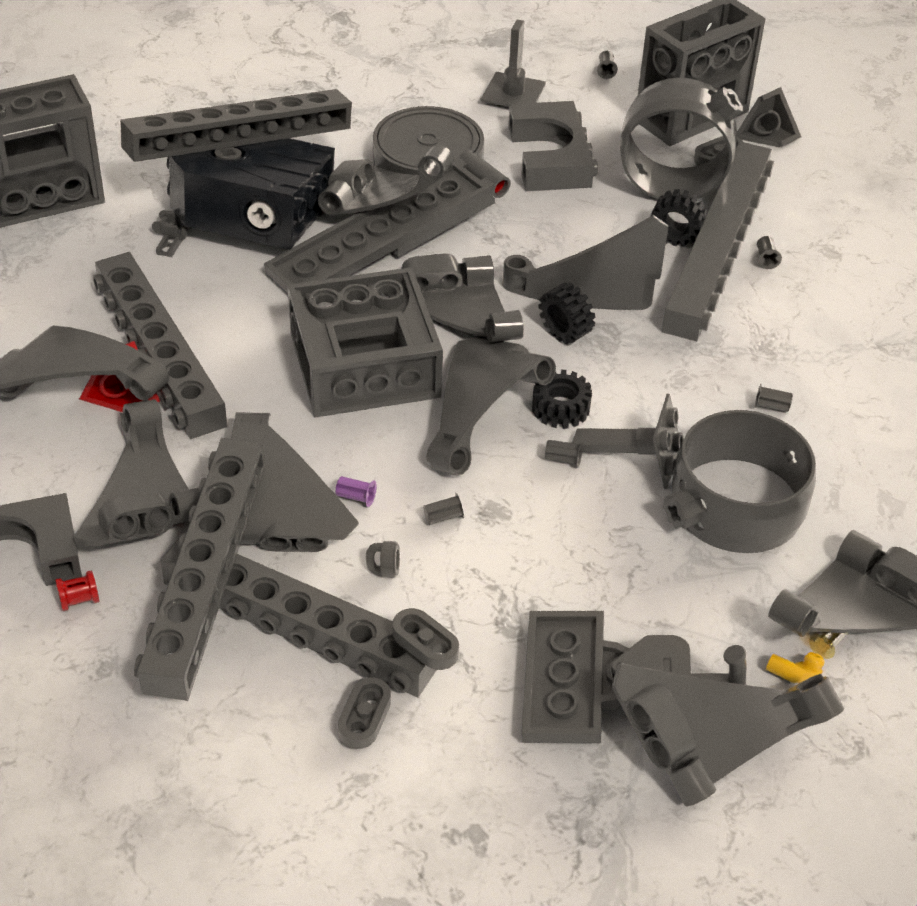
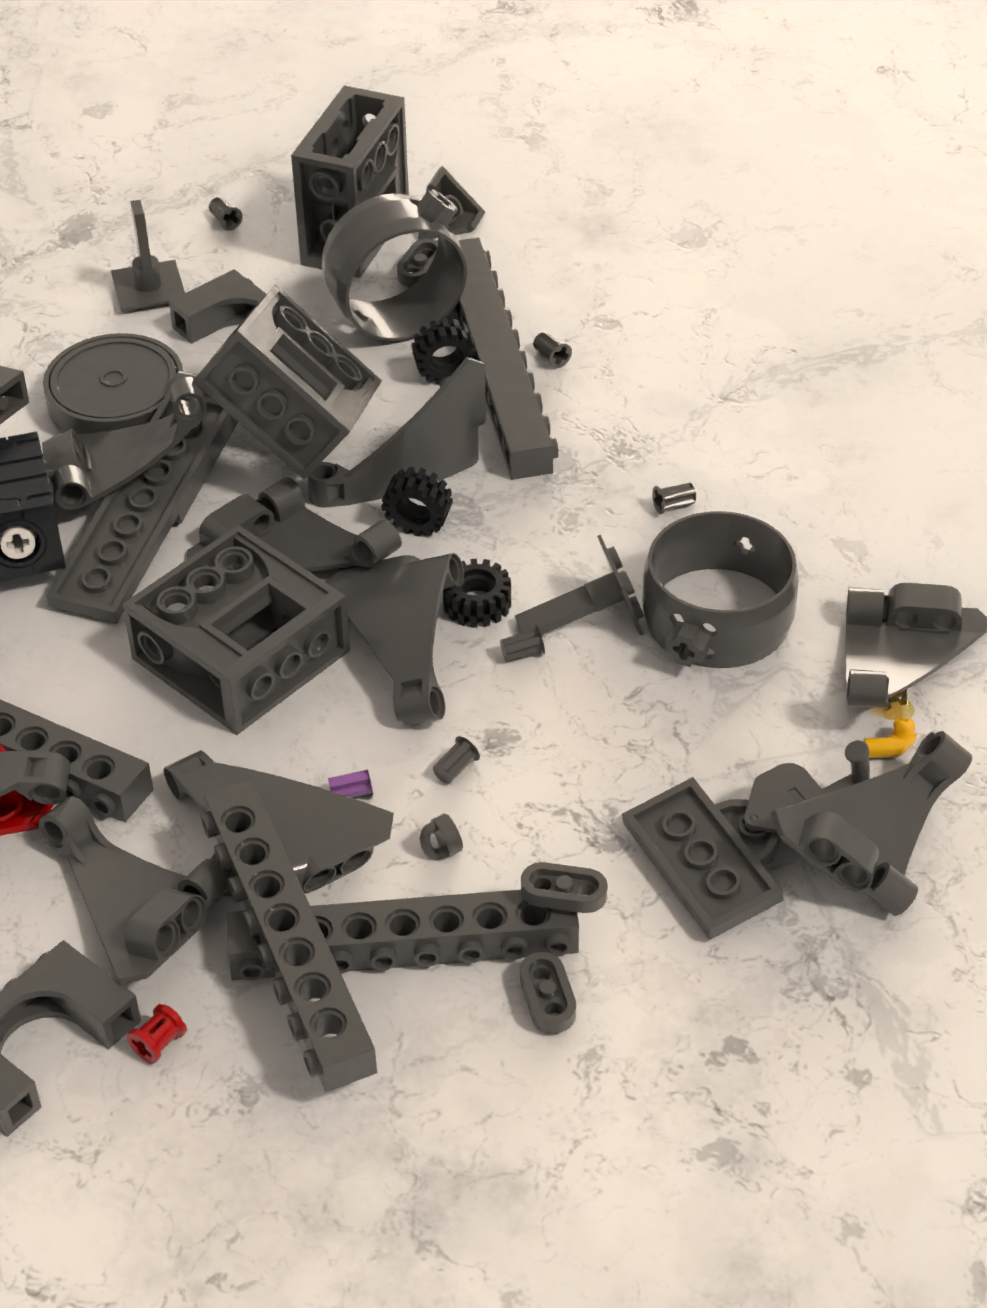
camera: 30 degrees left, 0 degrees up
(531, 203) = (289, 382): none -> dark grey piece

